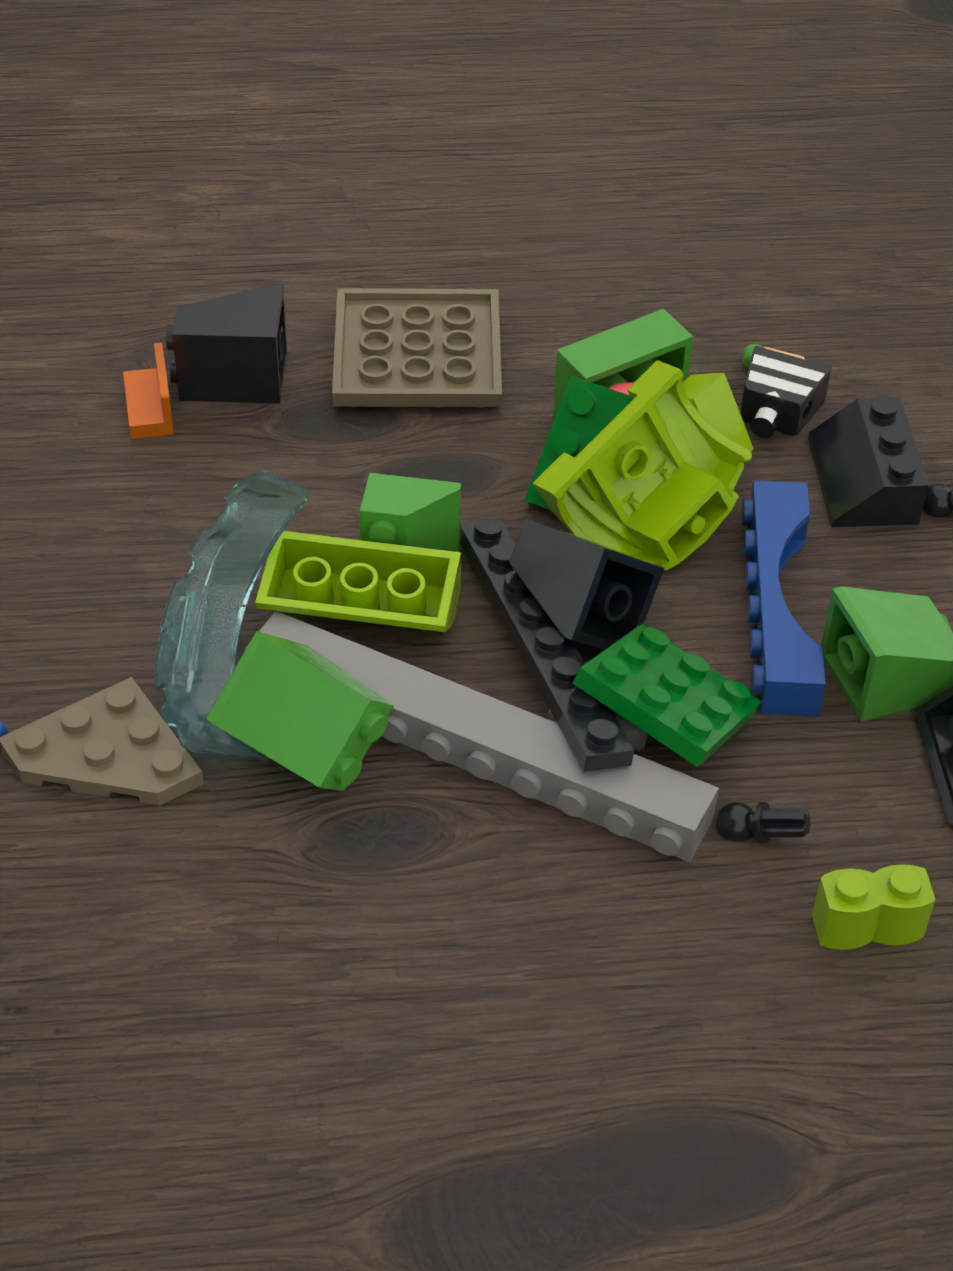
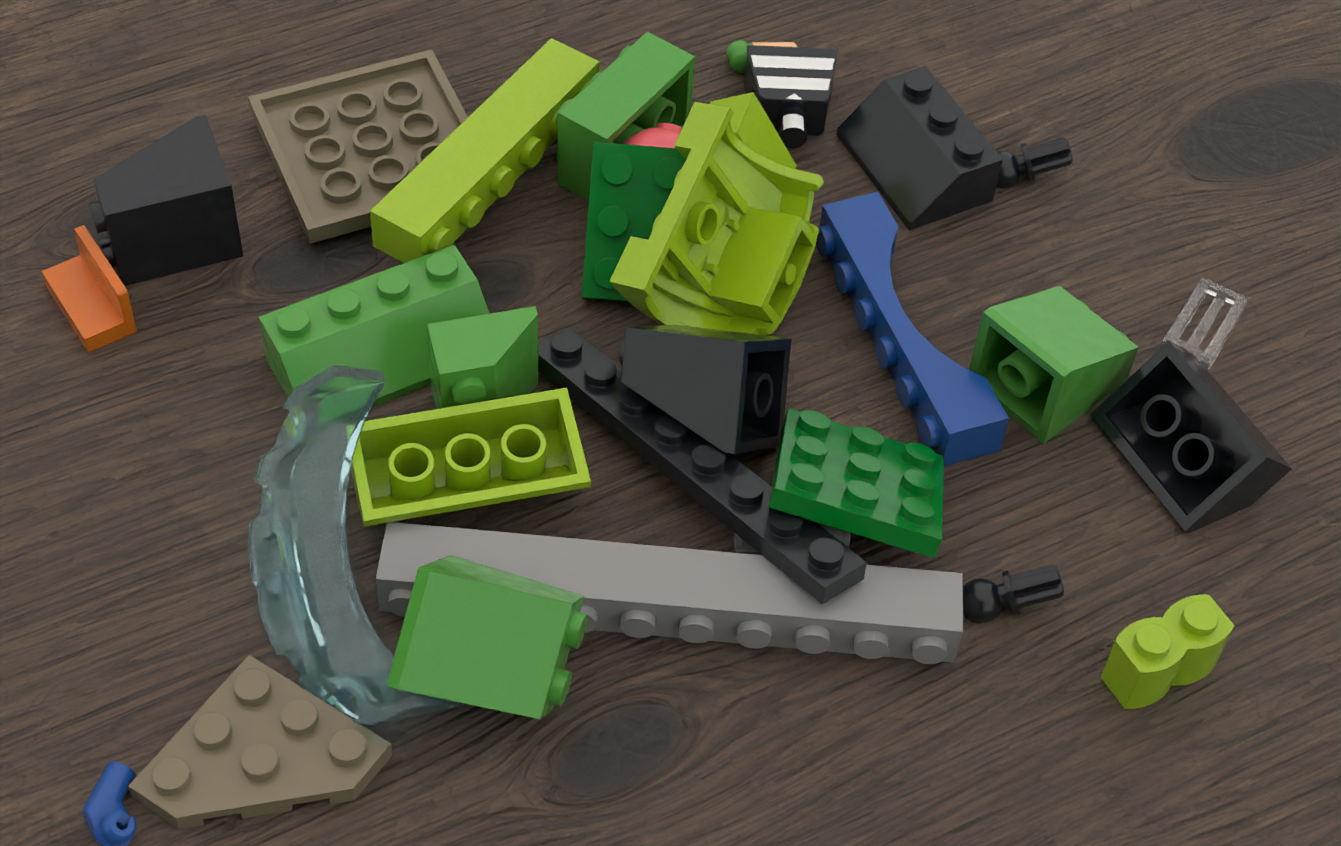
camera: 25 degrees left, 5 degrees up
(338, 470) = (373, 324): none -> bright green slope
(483, 373) = (481, 156): none -> lime brick

